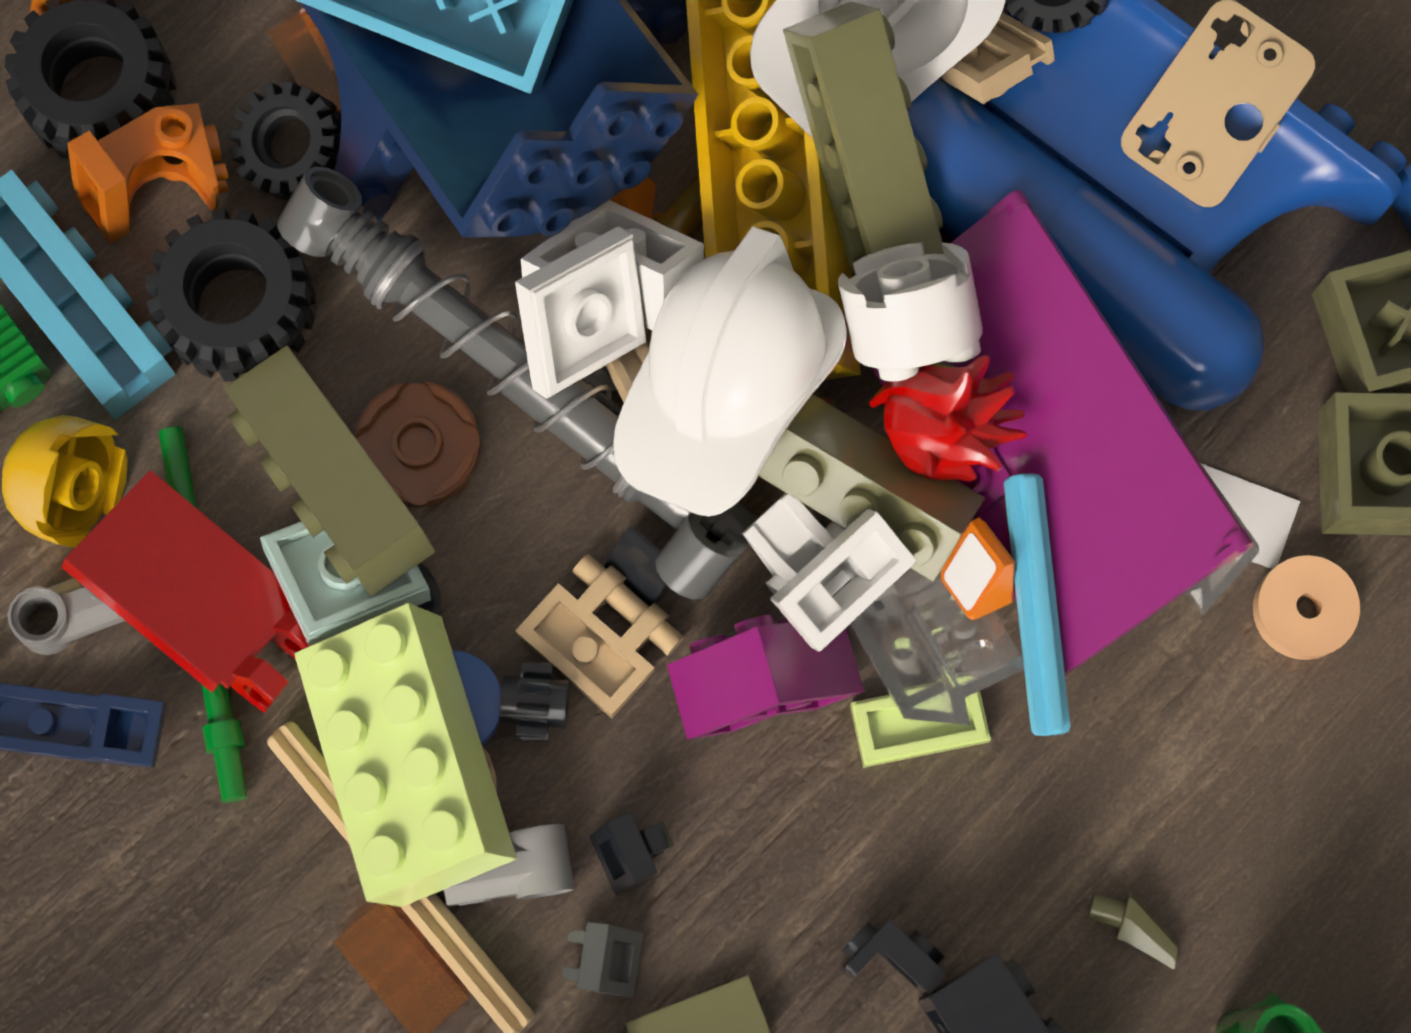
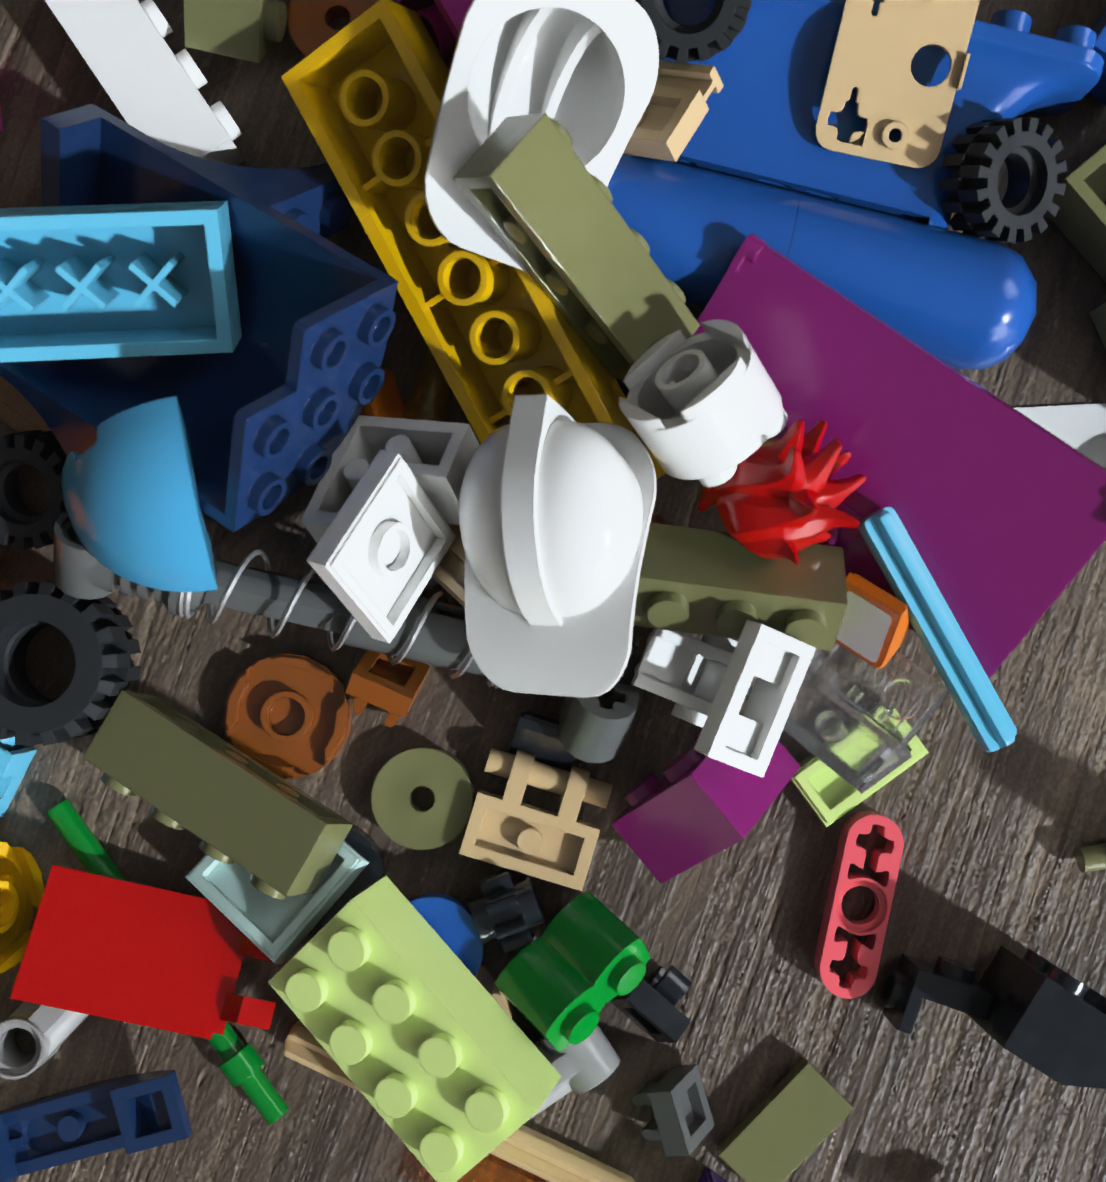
camera: 25 degrees left, 10 degrees up
(391, 179) = (139, 501): none -> dark azure brick
(499, 543) = (416, 826): none -> olive piece
(522, 449) = (386, 685): none -> dark orange tile
(571, 777) = (574, 971): none -> green brick
(905, 822) = (834, 946): none -> coral beam
(1302, 254) = (1030, 185): none -> black tyre

